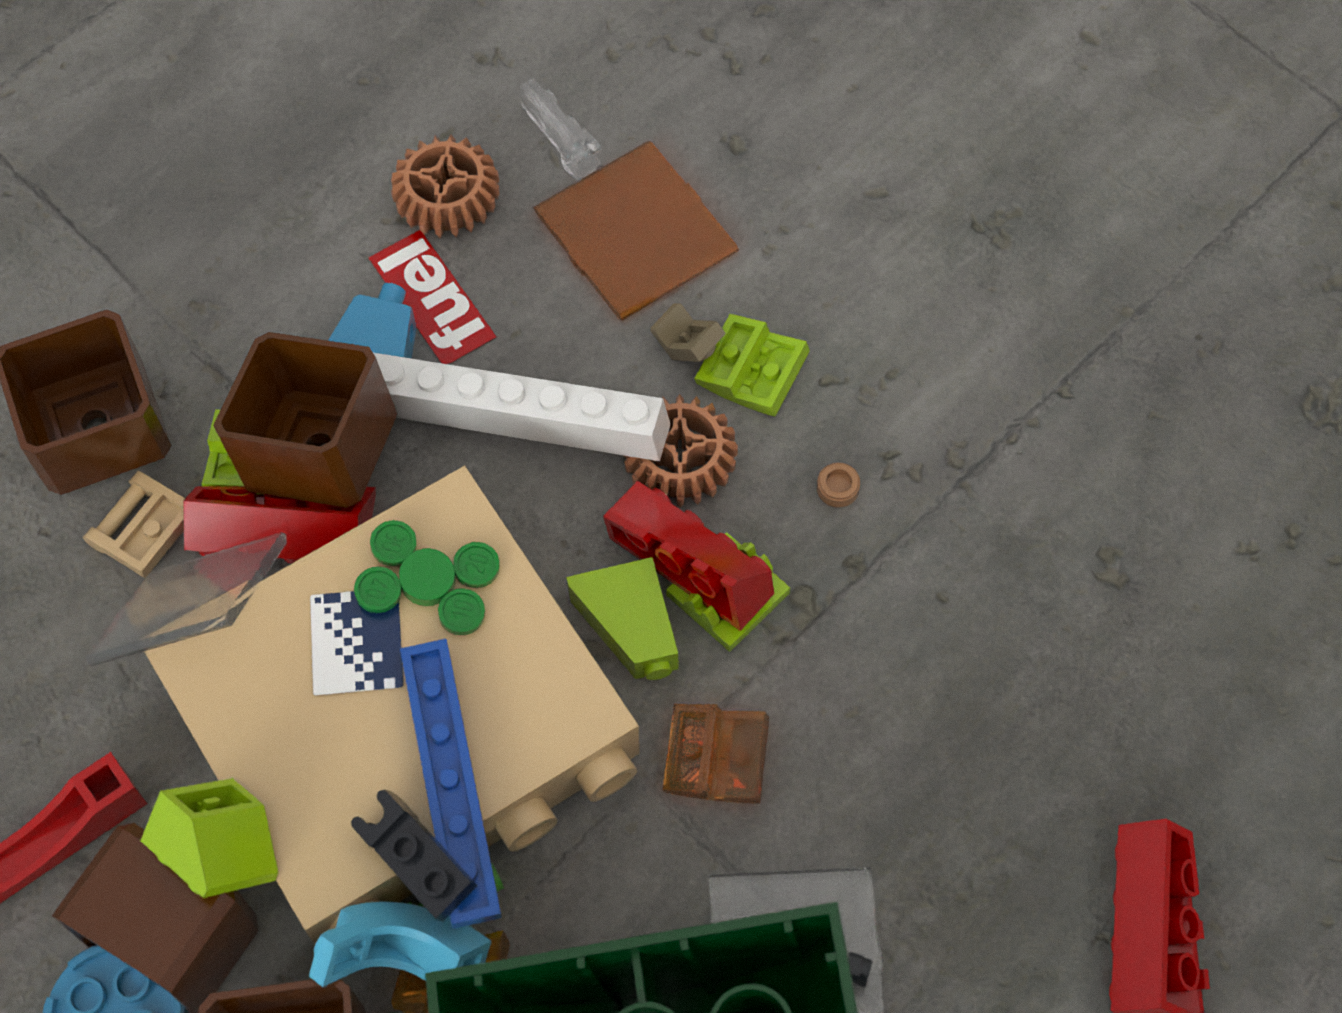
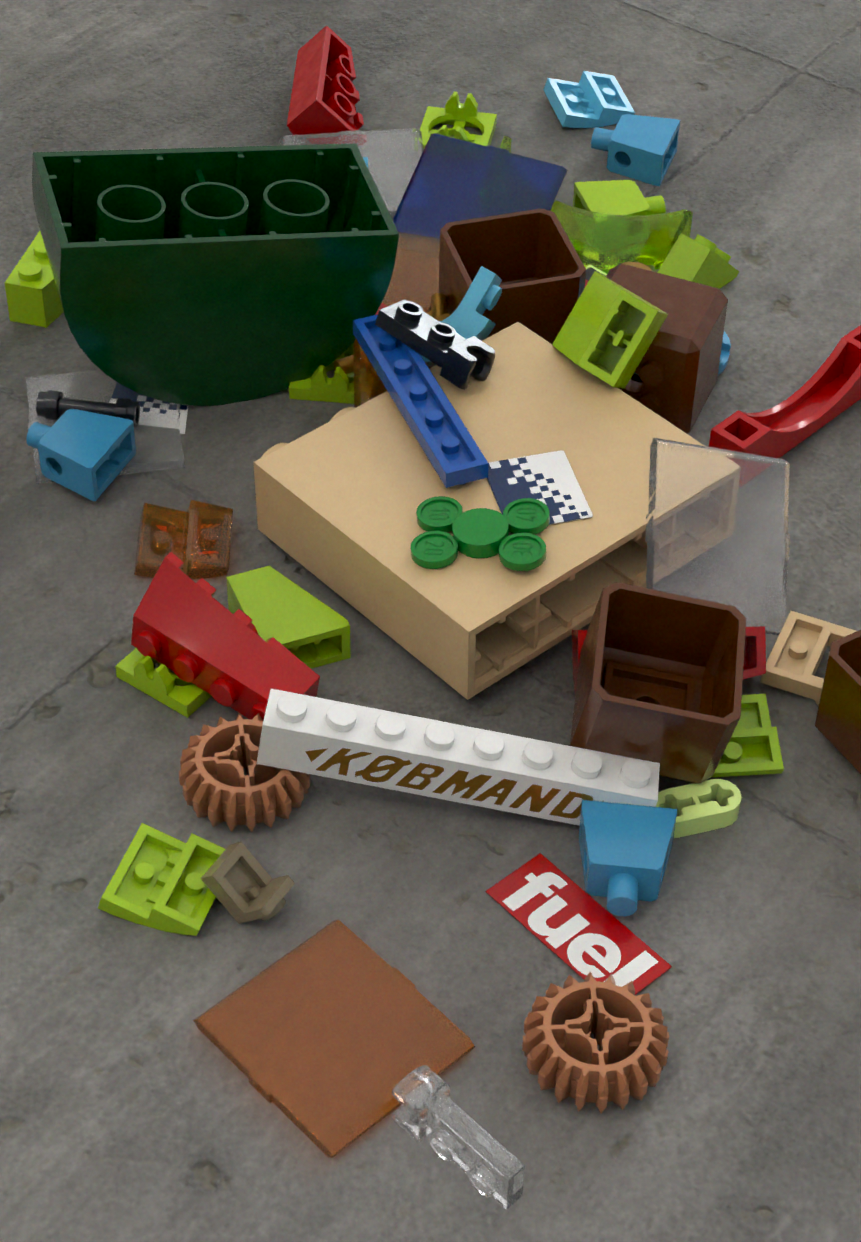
camera: 170 degrees right, 20 degrees down
(820, 869) = (83, 450): none -> dark azure torso
(838, 485) = (63, 771): medium nougat tile -> none

